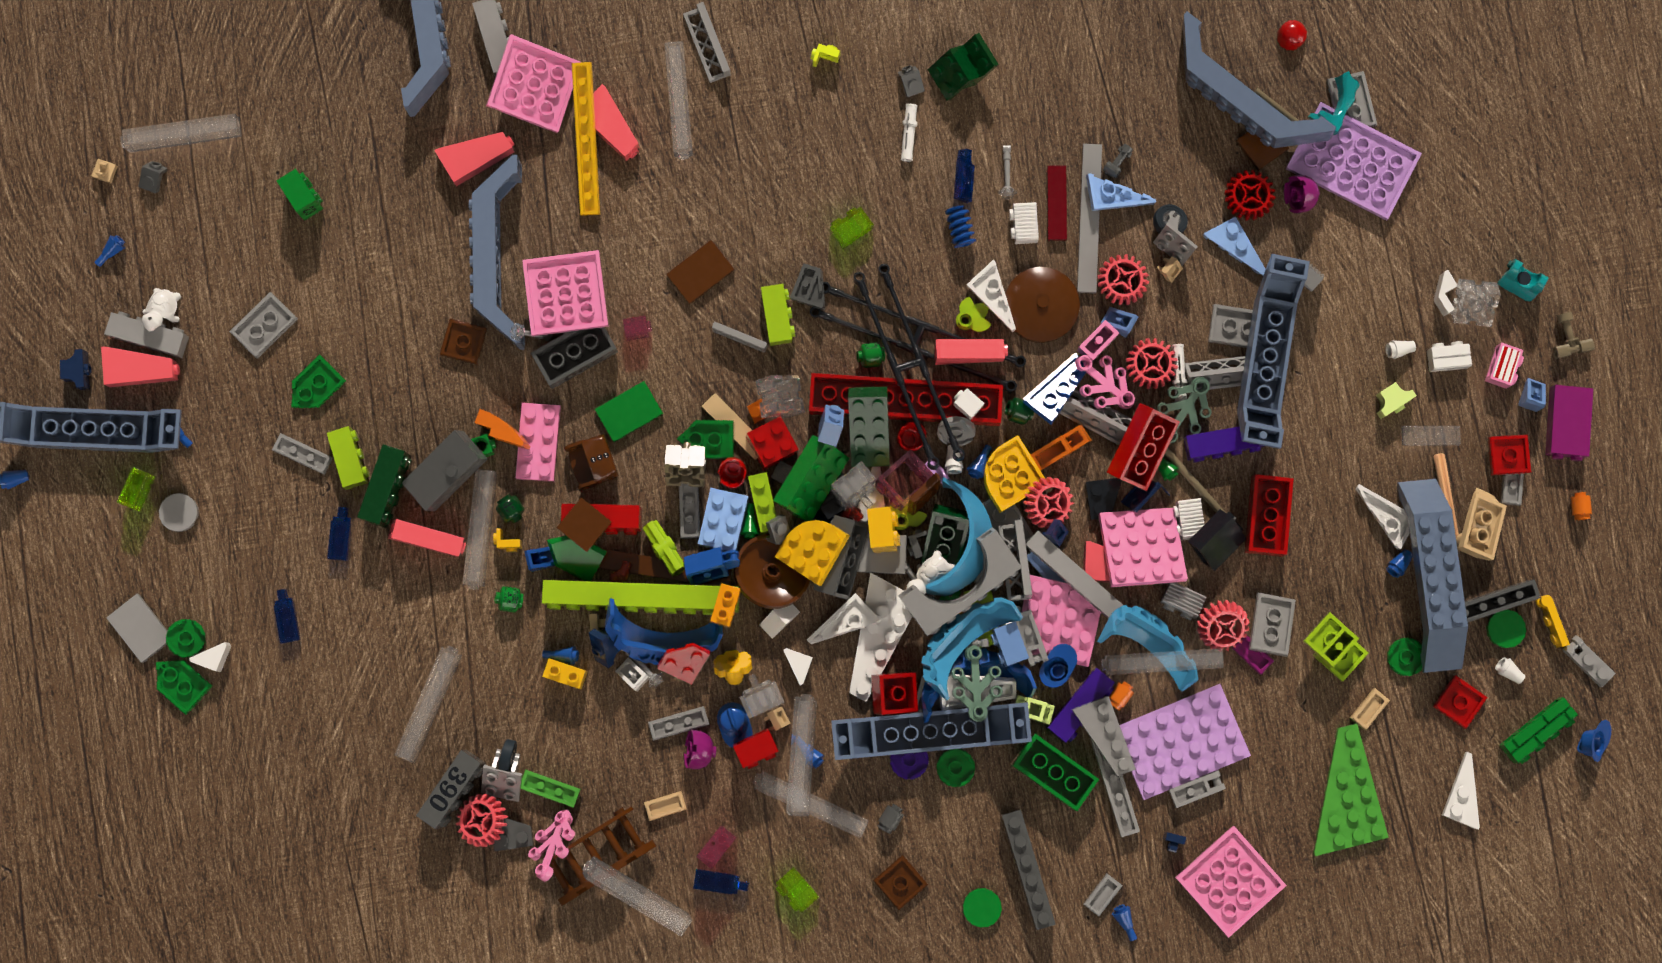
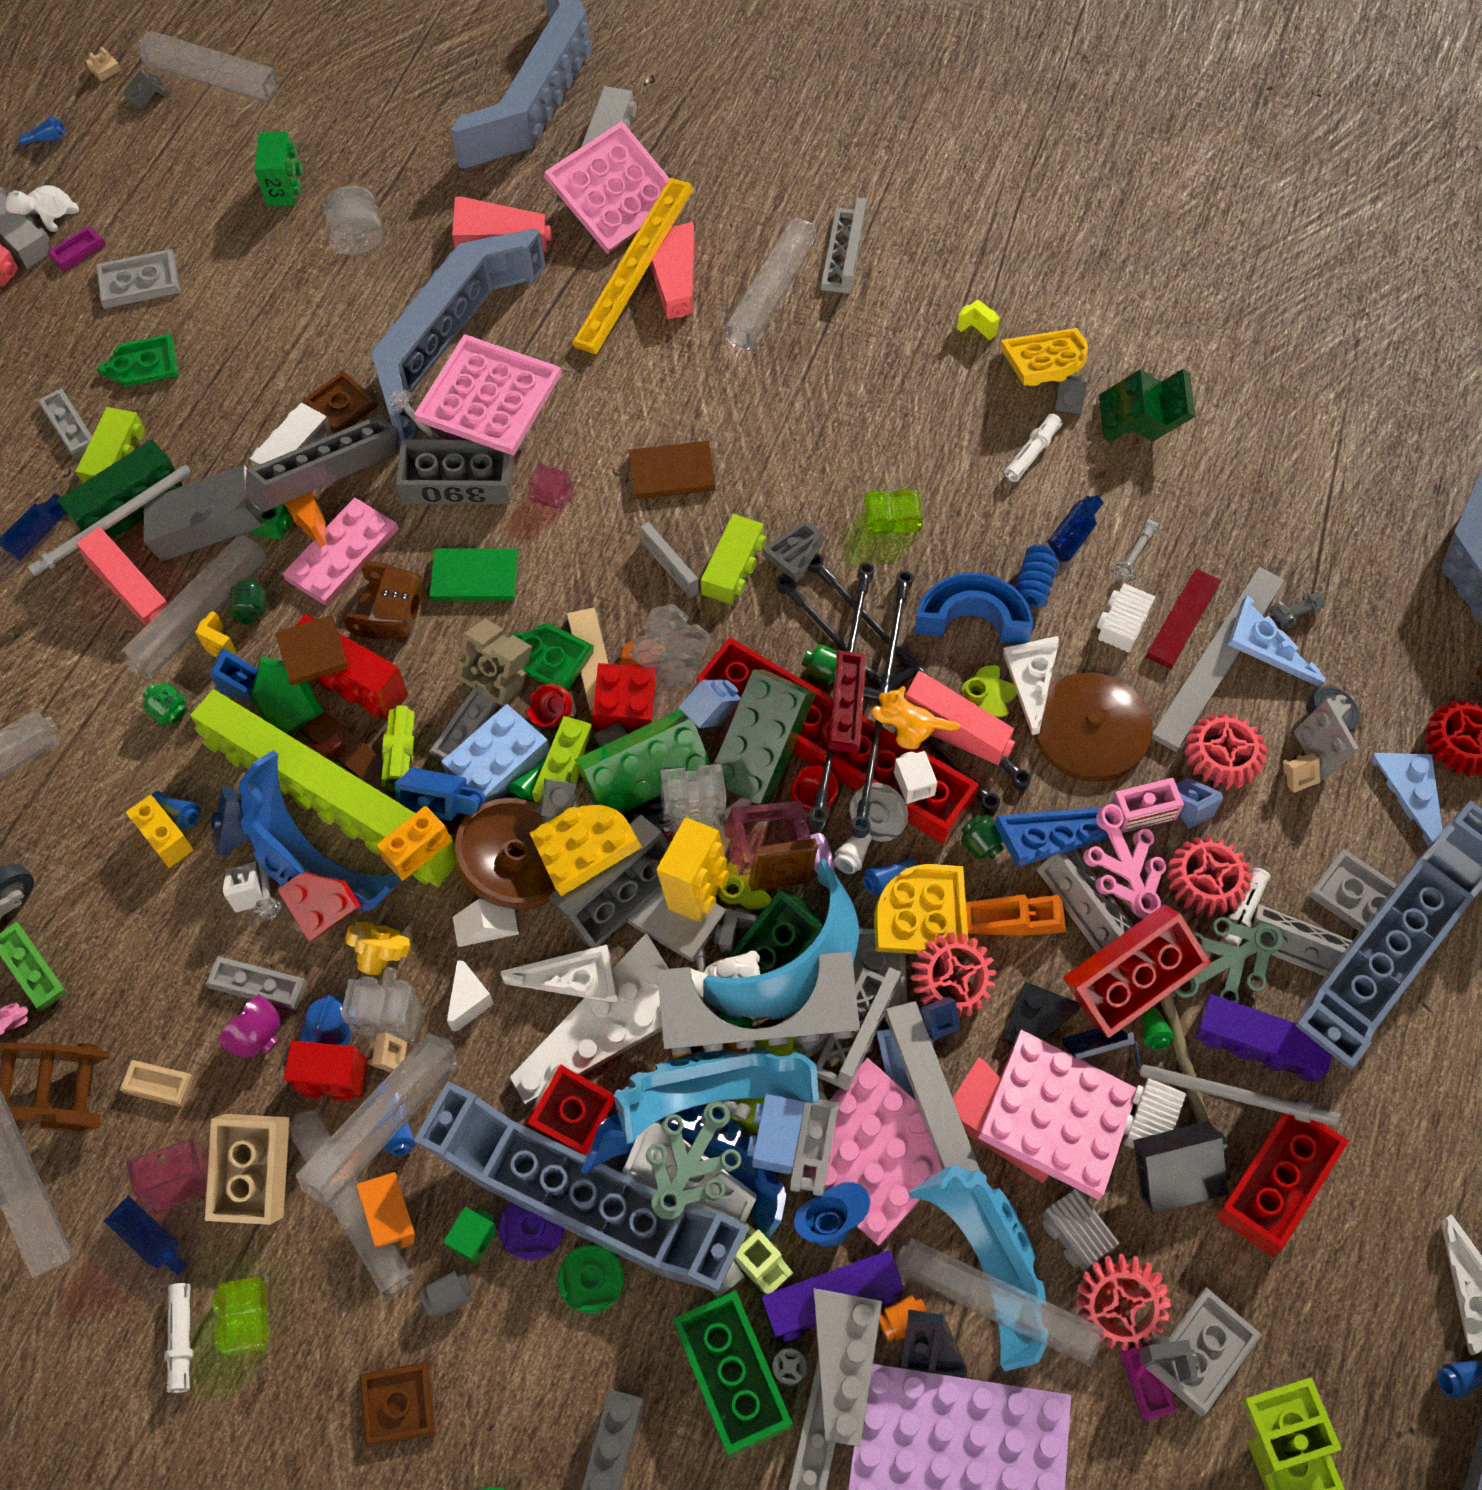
camera: 35 degrees right, 20 degrees down
(204, 326) = (76, 248): none -> magenta tile
(378, 556) = (60, 552): none -> light grey bar
(381, 207) = (353, 221): none -> clear wheel
(456, 390) = (298, 430): none -> white brick
(497, 399) = (320, 463): none -> dark grey brick
(751, 820) = (247, 1169): none -> tan brick
(771, 917) = (178, 1346): none -> white pin
(835, 798) = (386, 1211): none -> orange panel
(883, 62) = (1046, 355): none -> yellow plate
(883, 782) = (471, 1234): none -> green brick
(905, 379) = (847, 701): none -> dark red tile
(934, 259) = (978, 596): none -> blue brick
(948, 371) = (912, 722): none -> light orange animal
(1082, 751) = (789, 1362): none -> dark grey wheel
(1142, 701) = (931, 1346): none -> black wing
(1255, 638) = (1163, 1351): none -> dark grey bracket
(1264, 477) = (1302, 1110): none -> light grey bar

